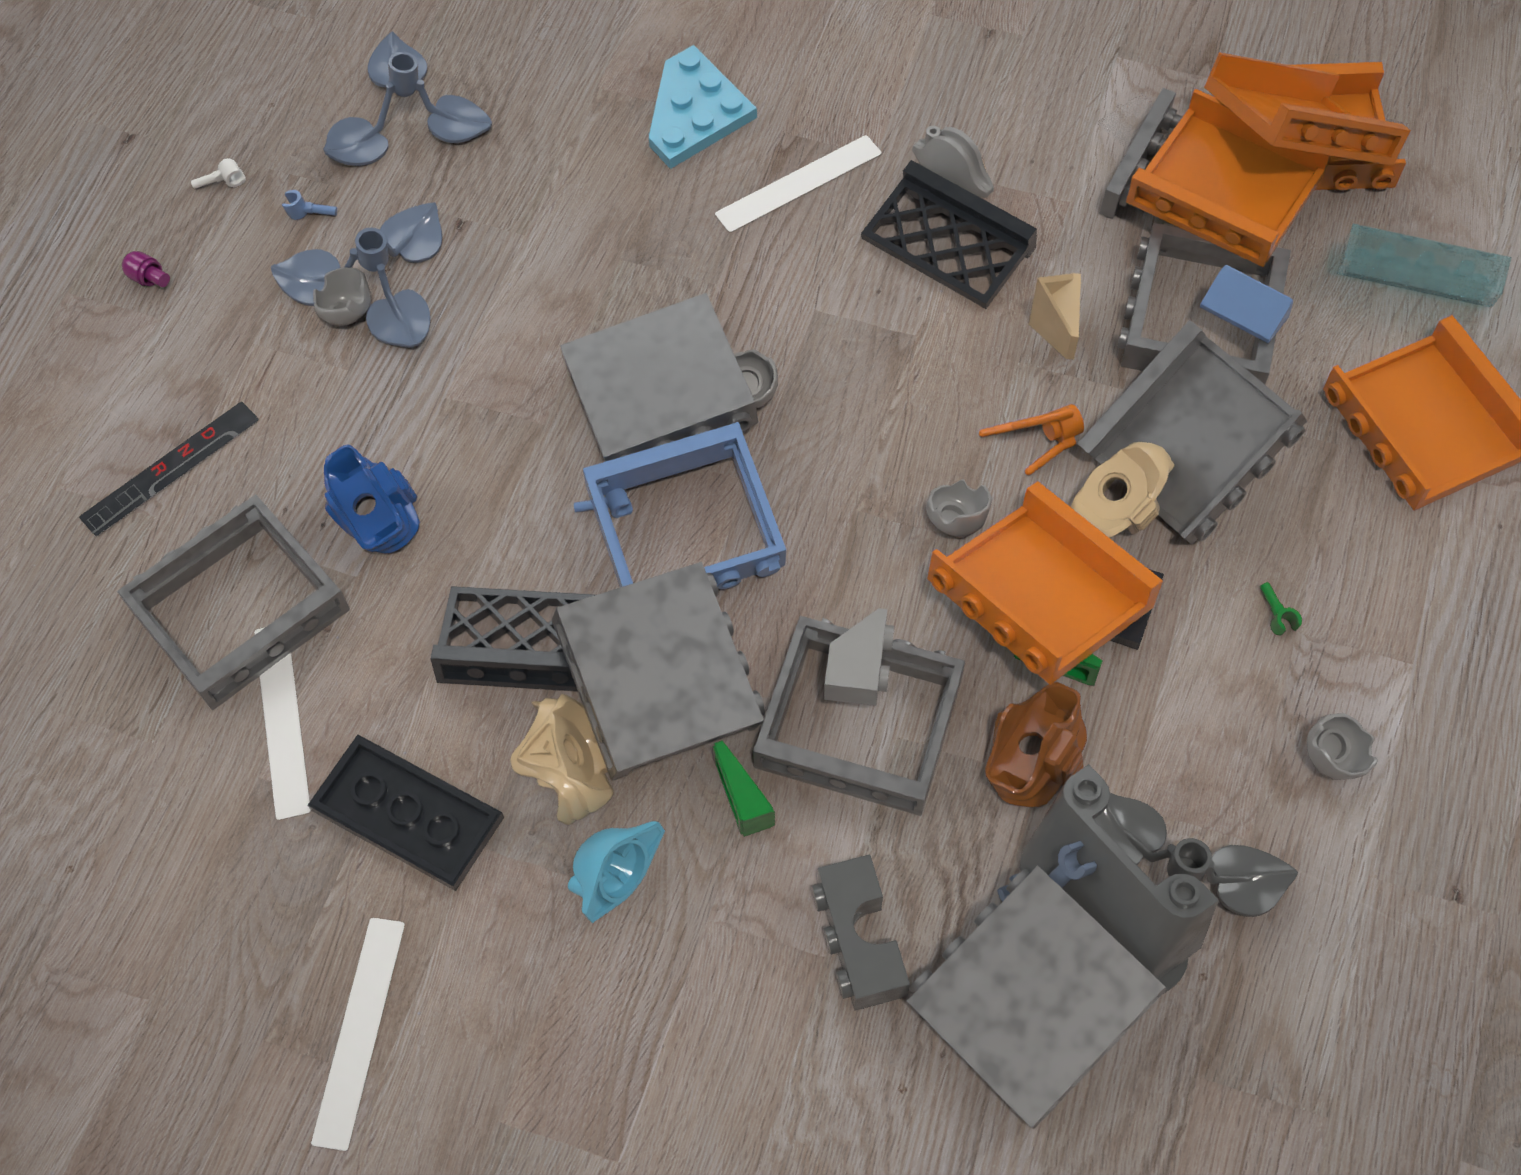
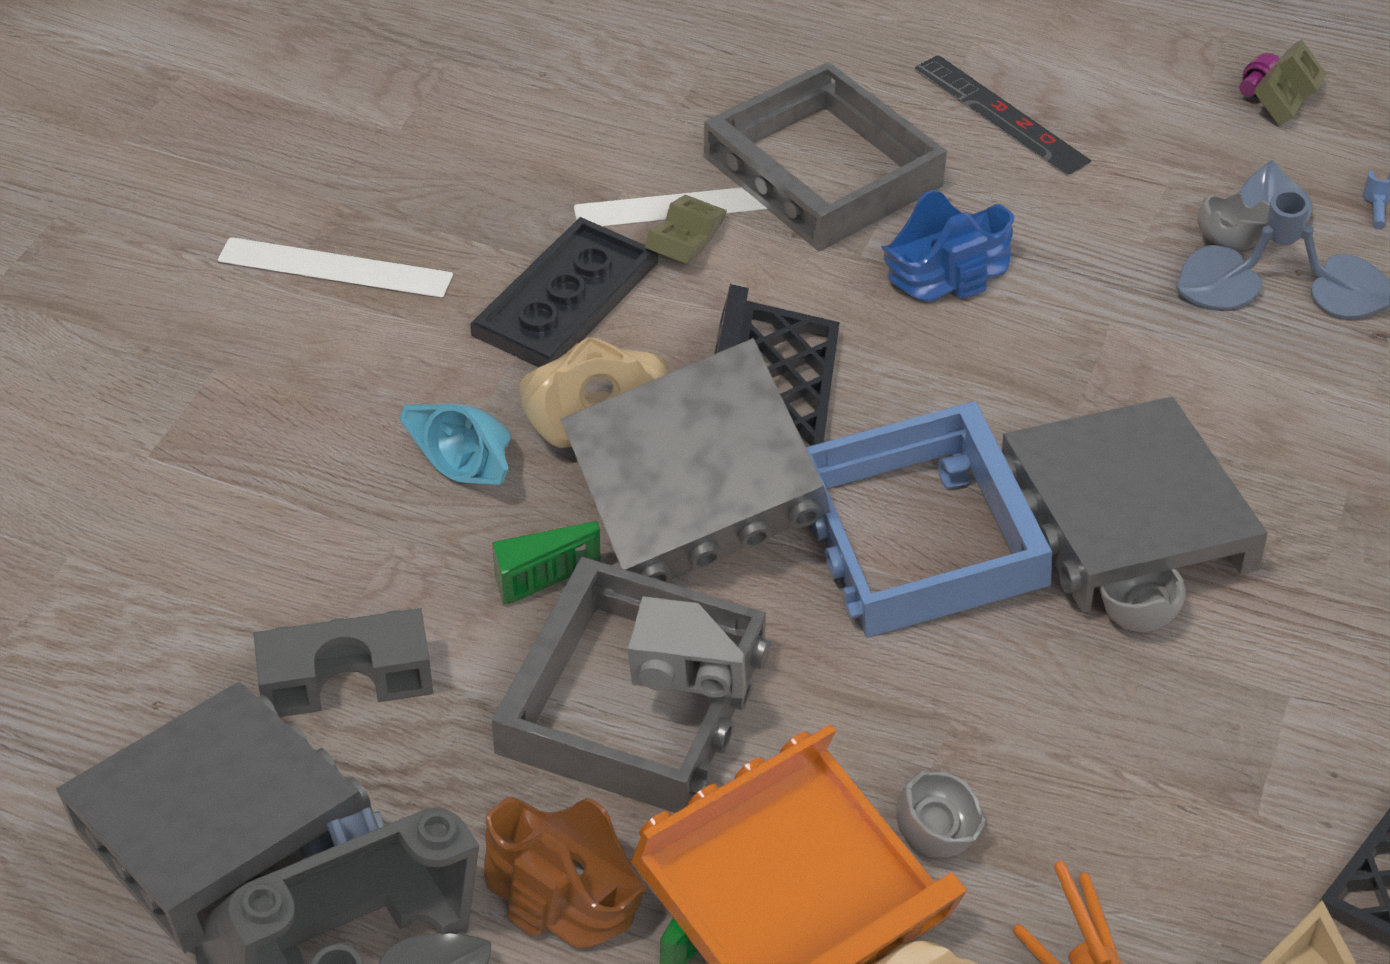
camera: 90 degrees right, 15 degrees down
(161, 247) = (1289, 82): none -> olive slope
(325, 713) = (686, 229): none -> olive slope

